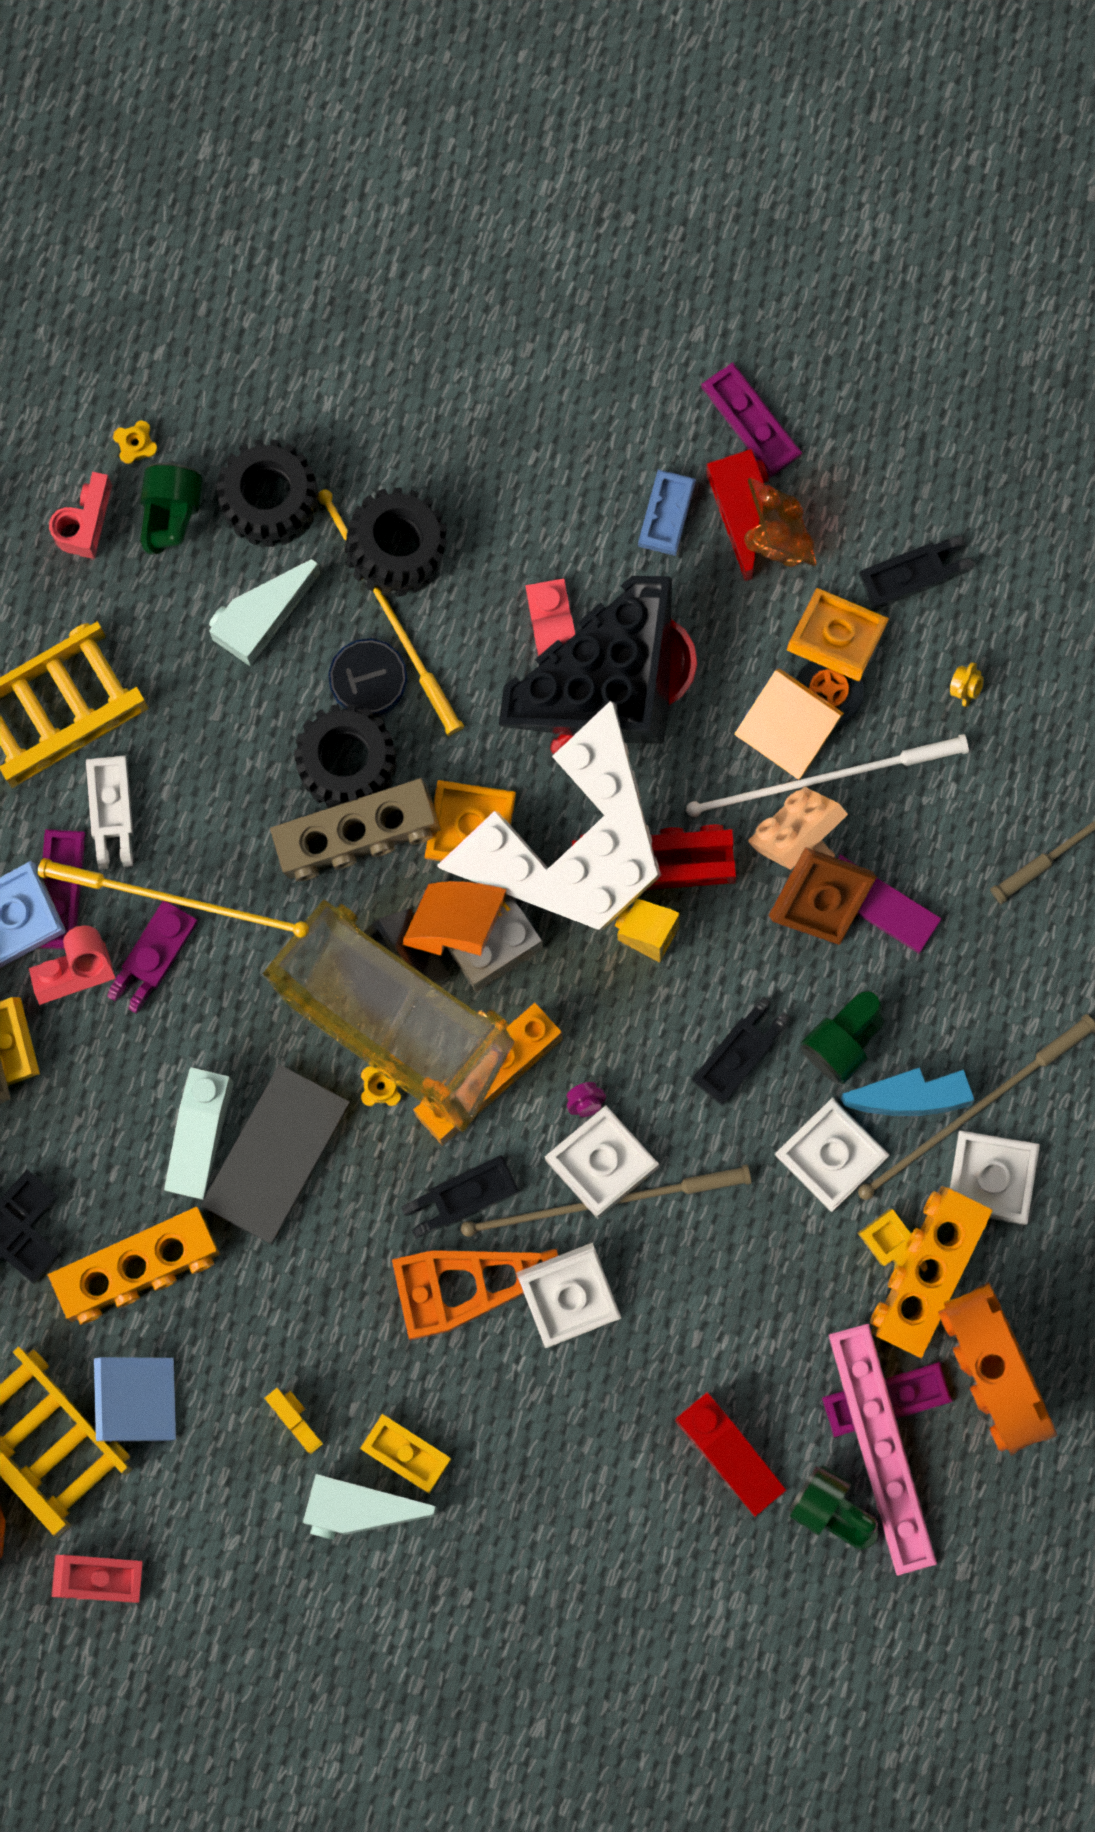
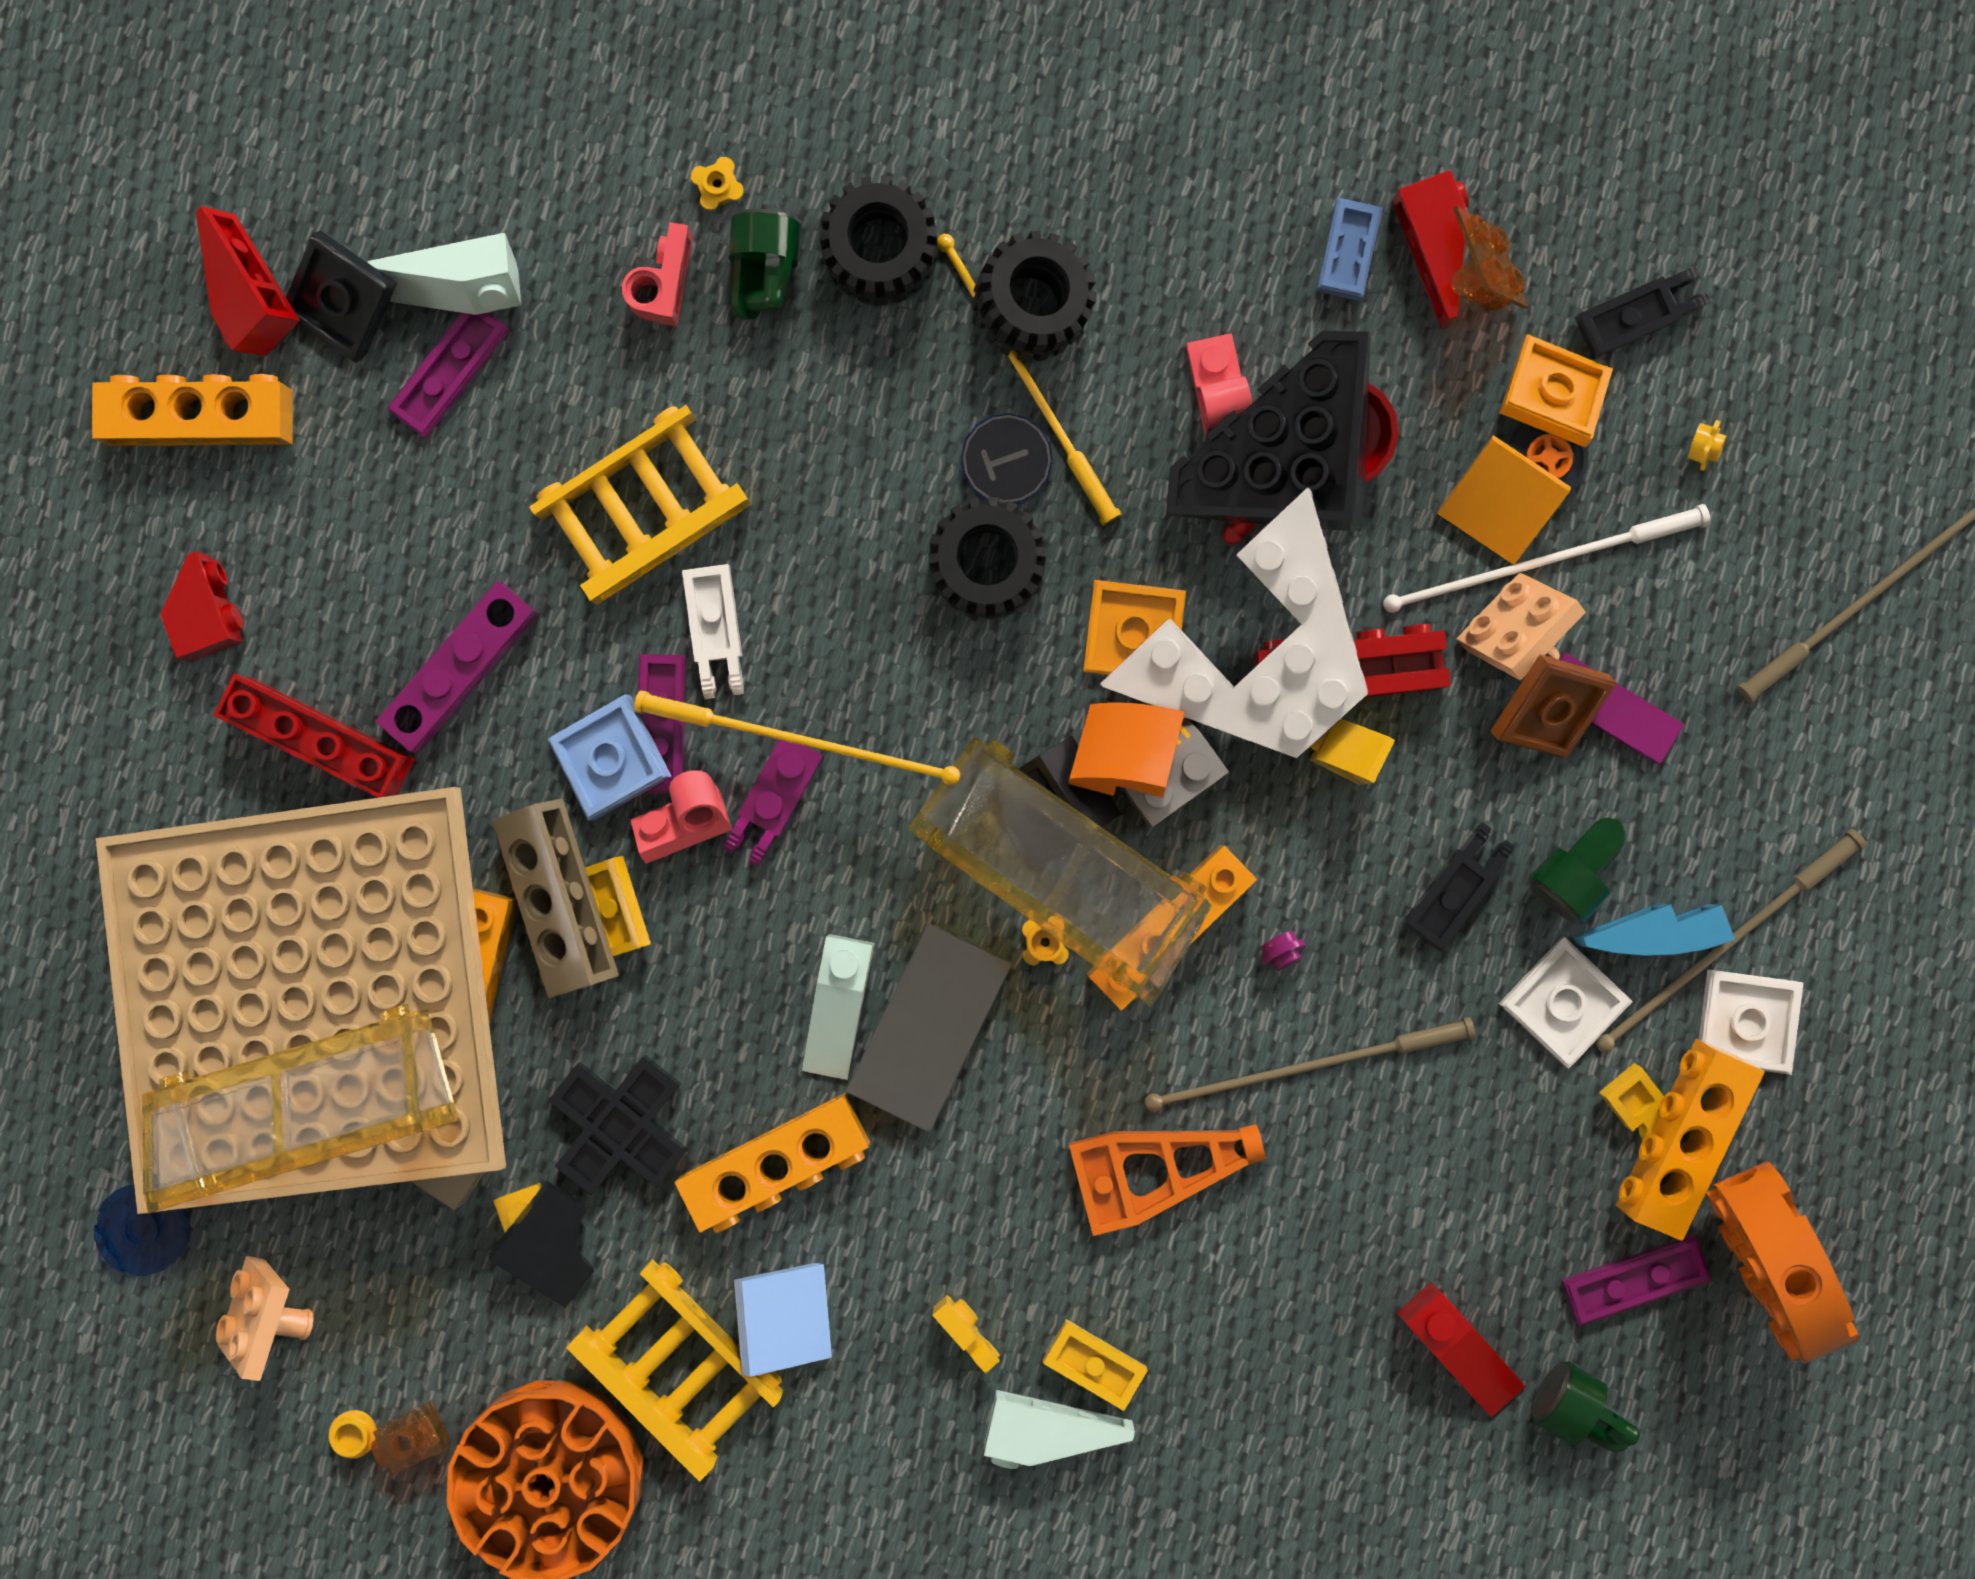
camera: 10 degrees left, 10 degrees up
(96, 1578) = (749, 1524): coral plate -> none
(258, 614) = (874, 389): light aqua slope -> none
(295, 837) = (931, 656): dark tan brick -> none
(464, 1195) = (1148, 1066): black hinge -> none
(568, 1295) = (1274, 1179): white tile -> none
(602, 1162) = (1304, 1021): white tile -> none
(751, 419) = (1442, 130): magenta tile -> none
(882, 1449) = (1636, 1339): bright pink tile -> none

